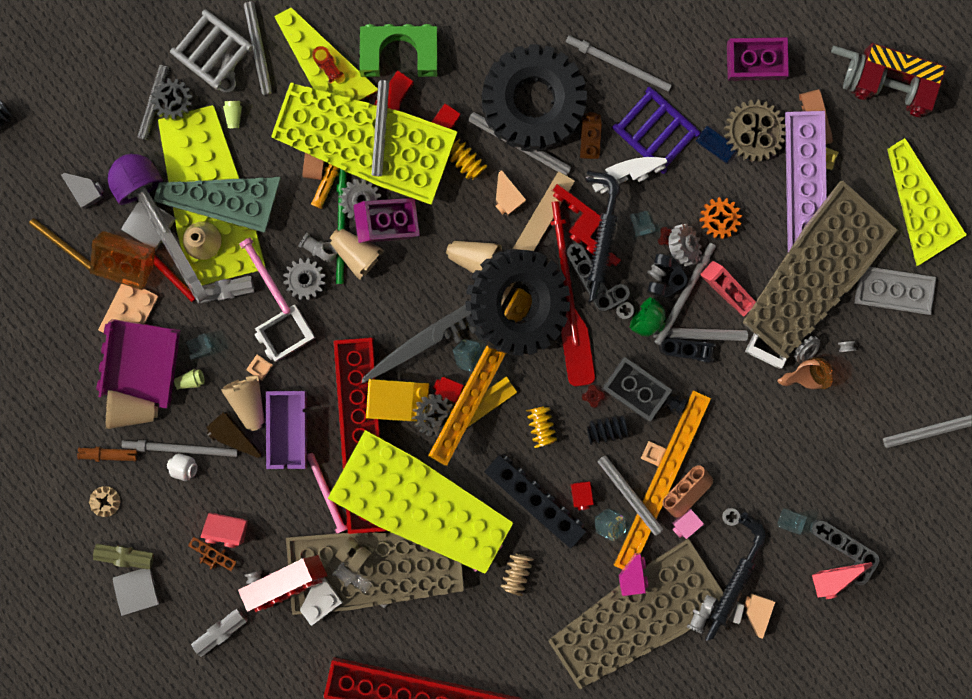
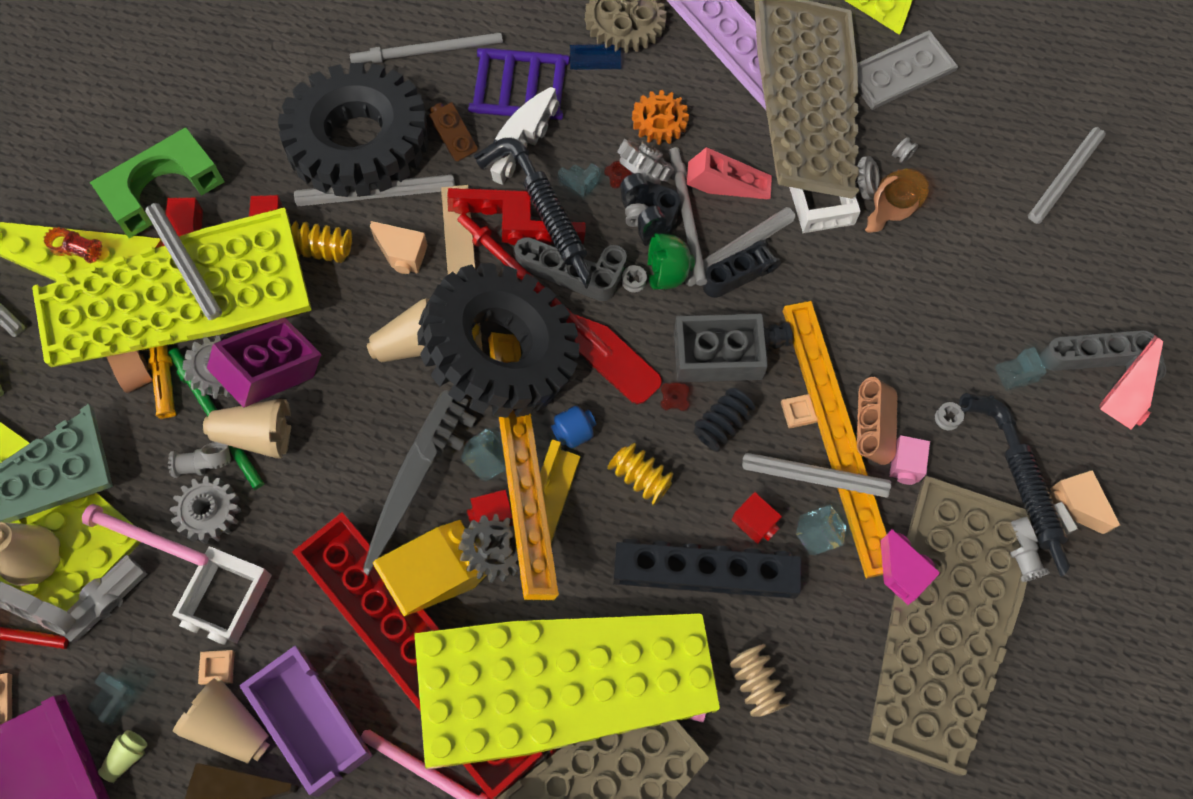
camera: 40 degrees left, 20 degrees down
(525, 374) = (573, 426): none -> blue head

